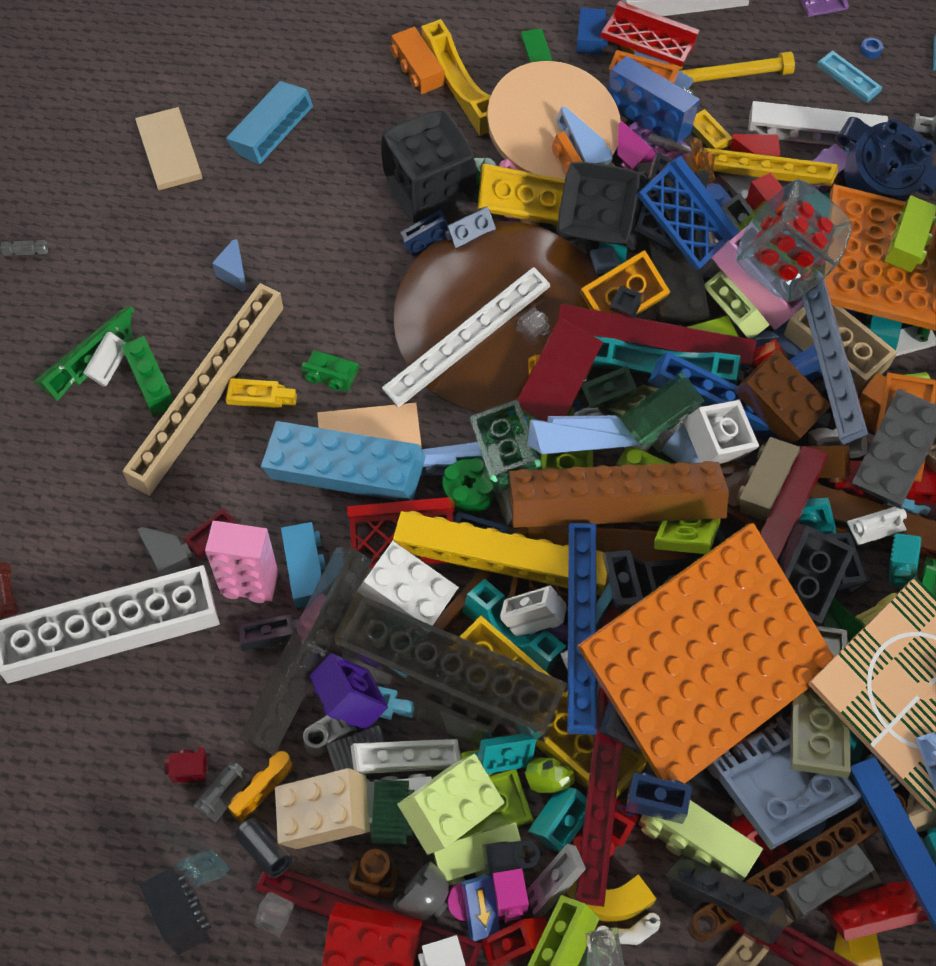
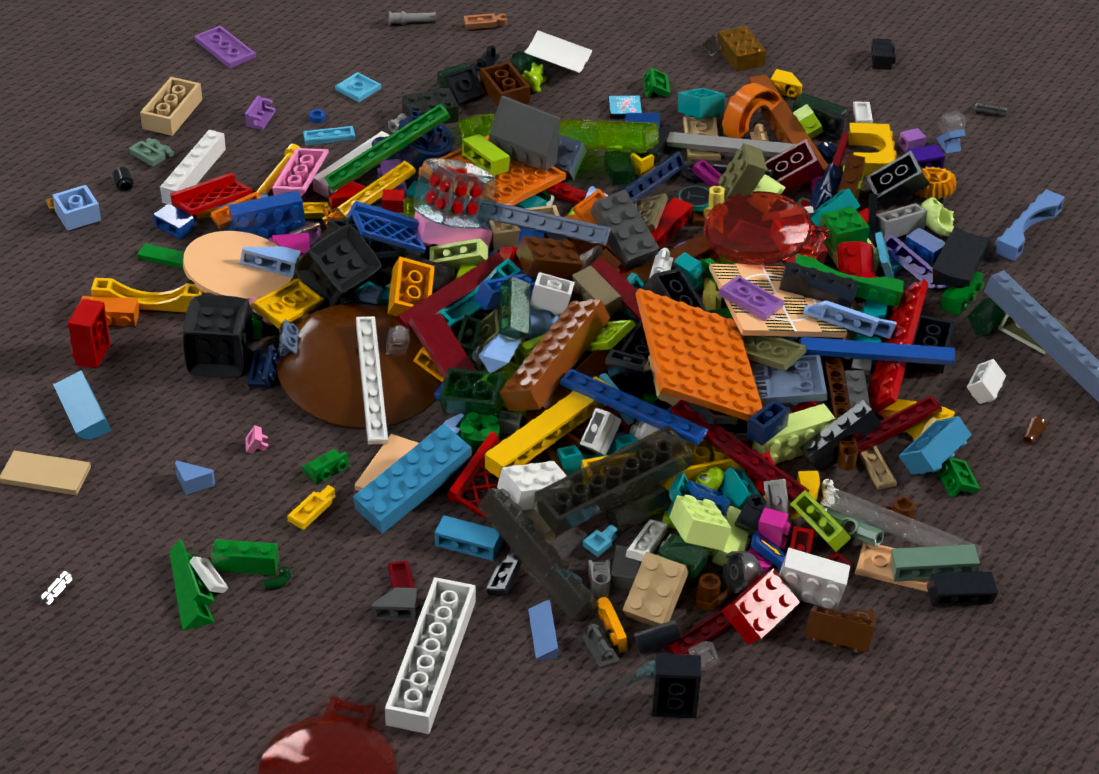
camera: 60 degrees left, 20 degrees down
(141, 425) = (281, 580): none -> dark green arm
(186, 766) = (570, 655): dark red brick -> none
(203, 390) = (287, 530): tan brick -> none
(214, 718) = (543, 631): none -> medium blue slope
(242, 561) = (455, 544): bright pink brick -> none
(321, 287) = (255, 440): none -> bright pink tile
(348, 692) = (586, 542): dark purple brick -> none
(355, 63) = (89, 333): none -> red brick
(517, 789) = (702, 492): none -> blue bracket
(564, 150) = (277, 270): orange plate -> none
(626, 302) = (425, 286): black plate -> none
(745, 85) = (300, 171): none -> bright pink slope
(836, 135) = (387, 147): none -> green plate
(884, 660) = (751, 297): none -> medium lavender tile

